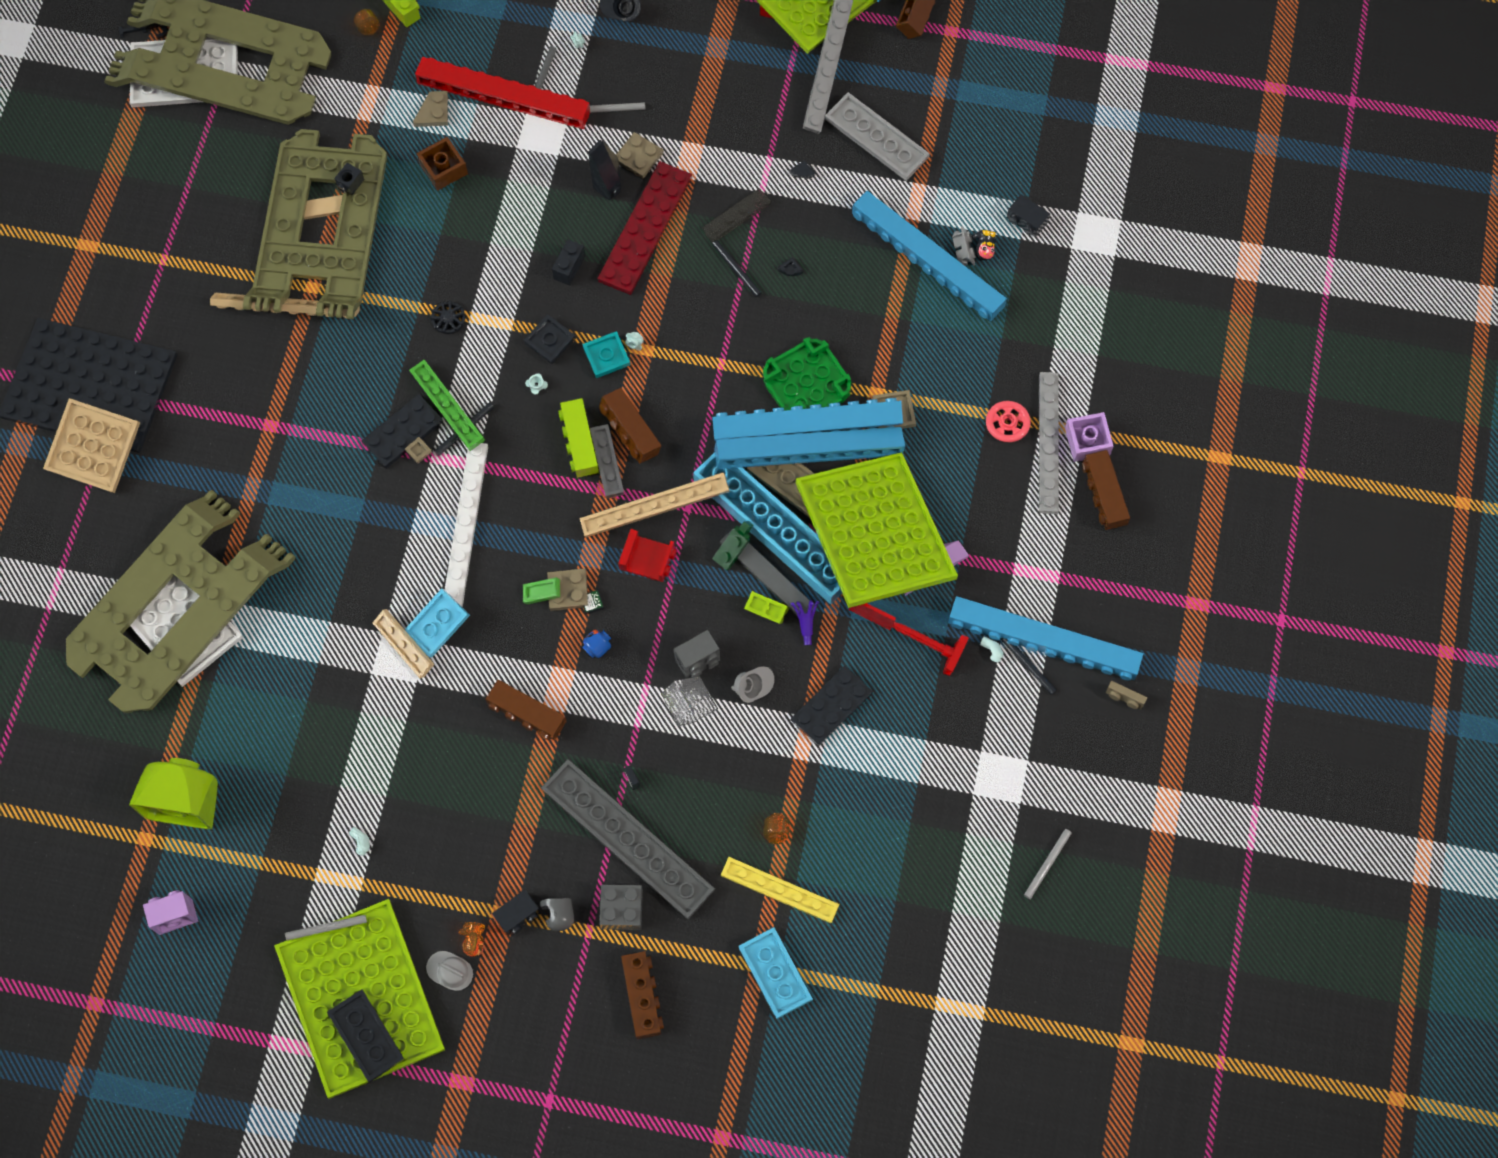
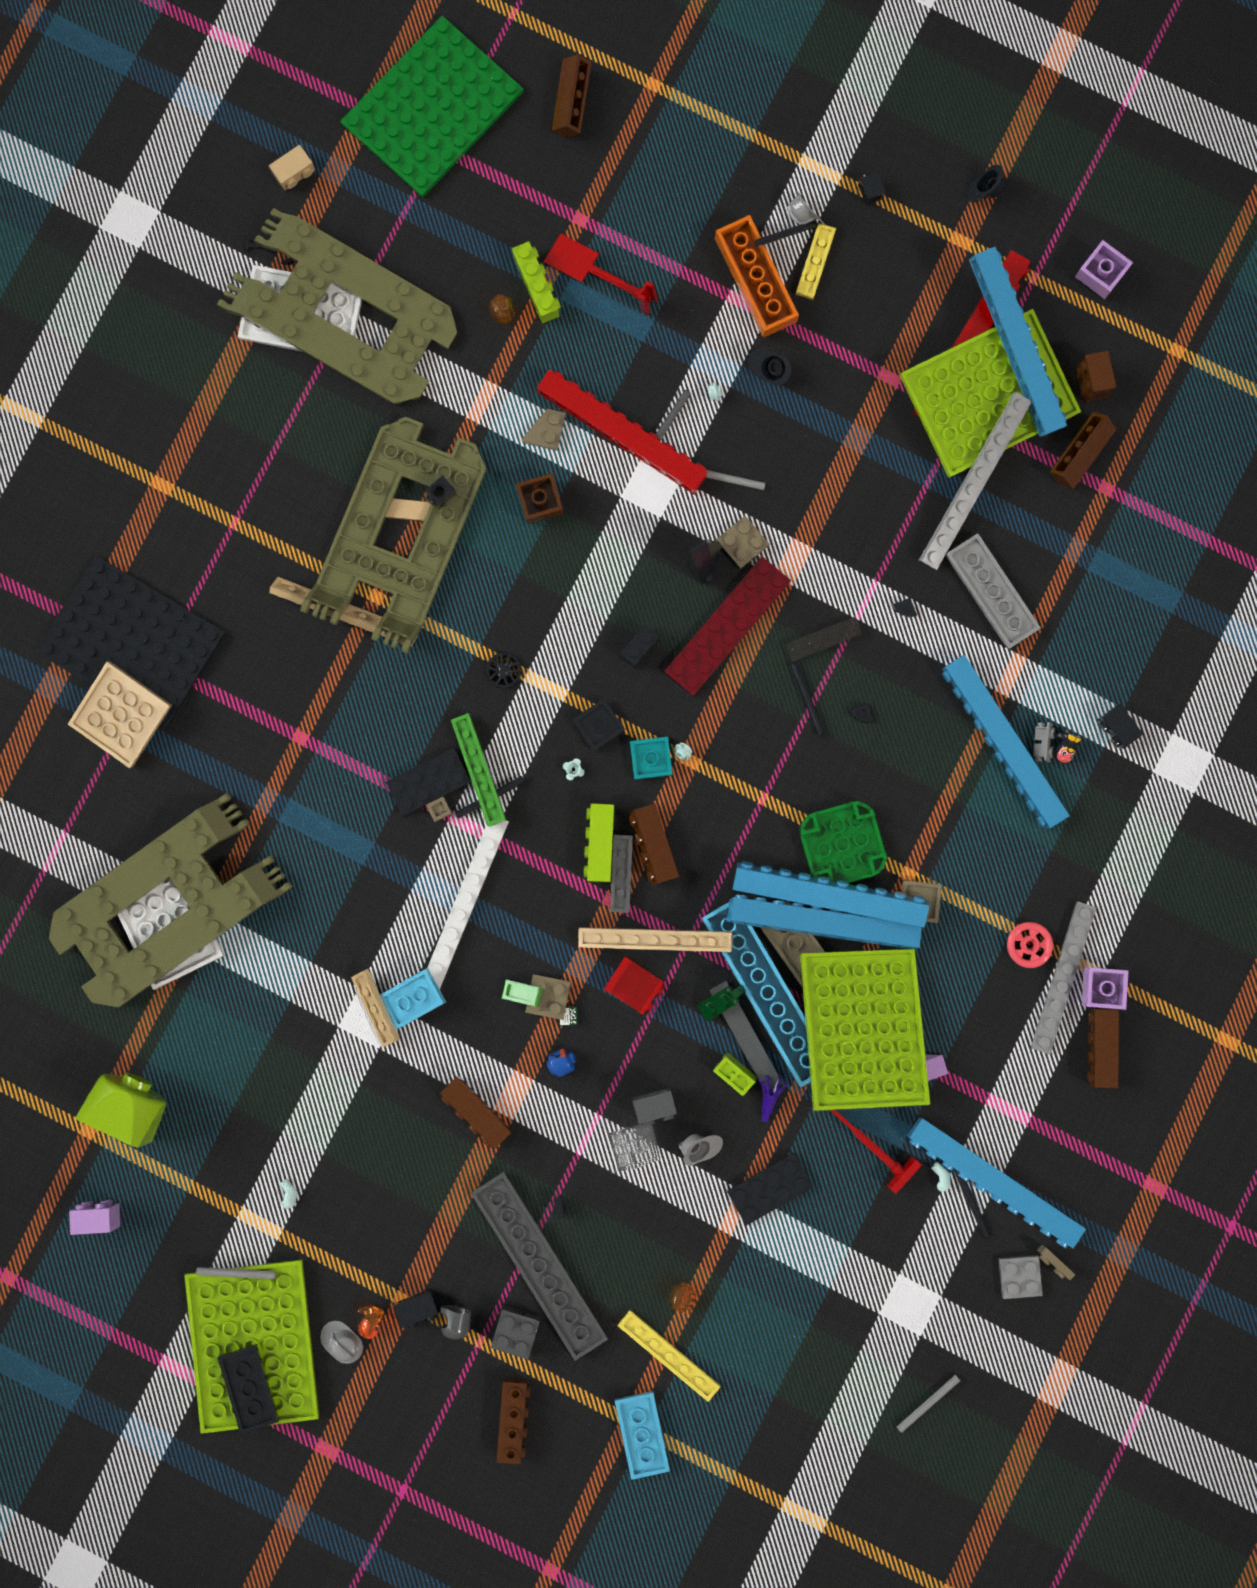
camera: 15 degrees right, 15 degrees up
(1097, 720) = (1020, 1277): none -> light grey plate

